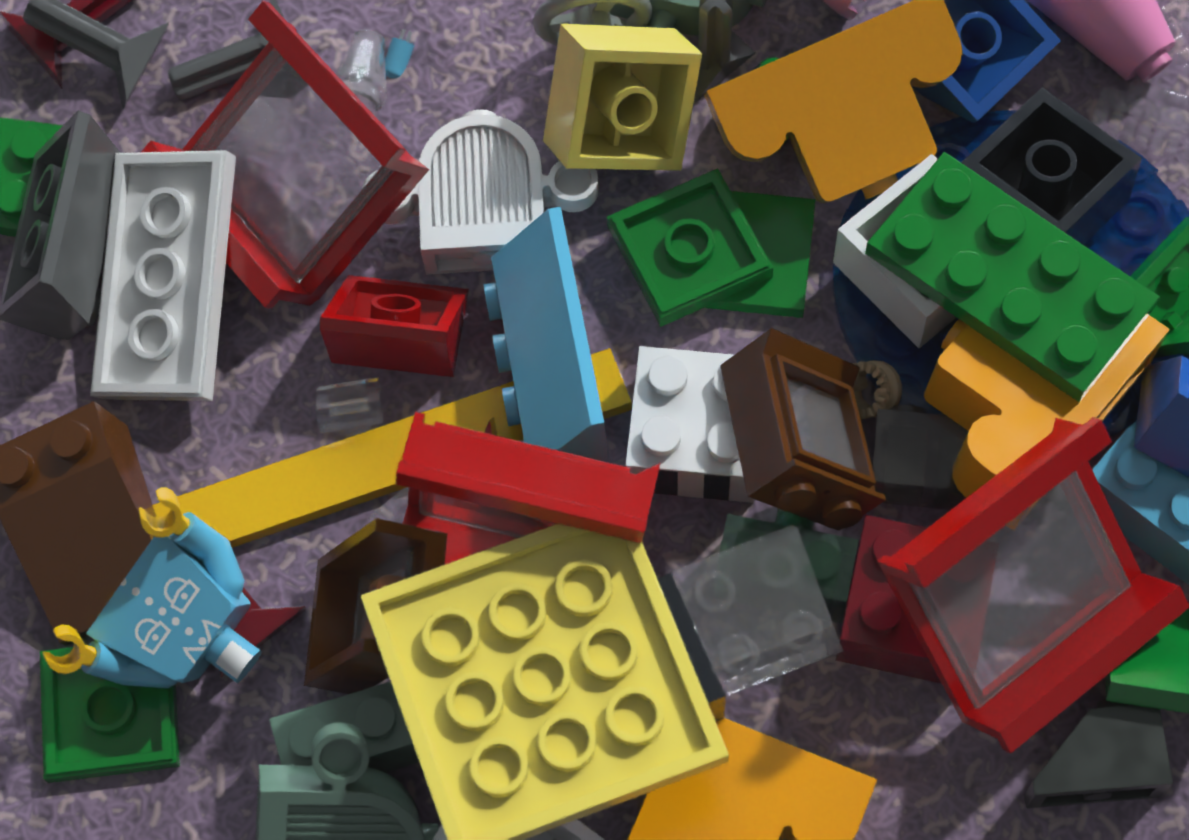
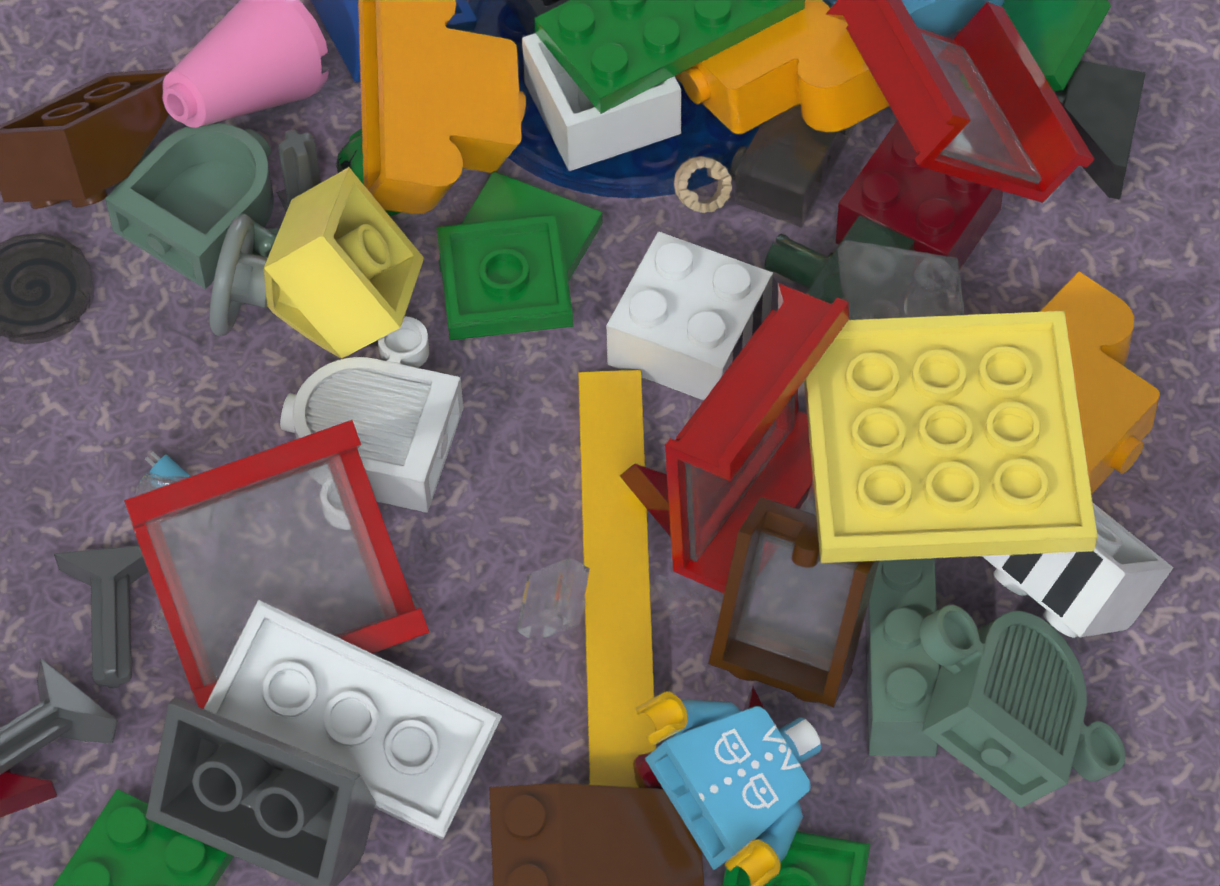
camera: 75 degrees left, 10 degrees down
(395, 325) = (481, 538): red slope -> none
(545, 342) = (582, 388): medium azure slope -> none
(800, 430) = (744, 223): reddish brown window -> none

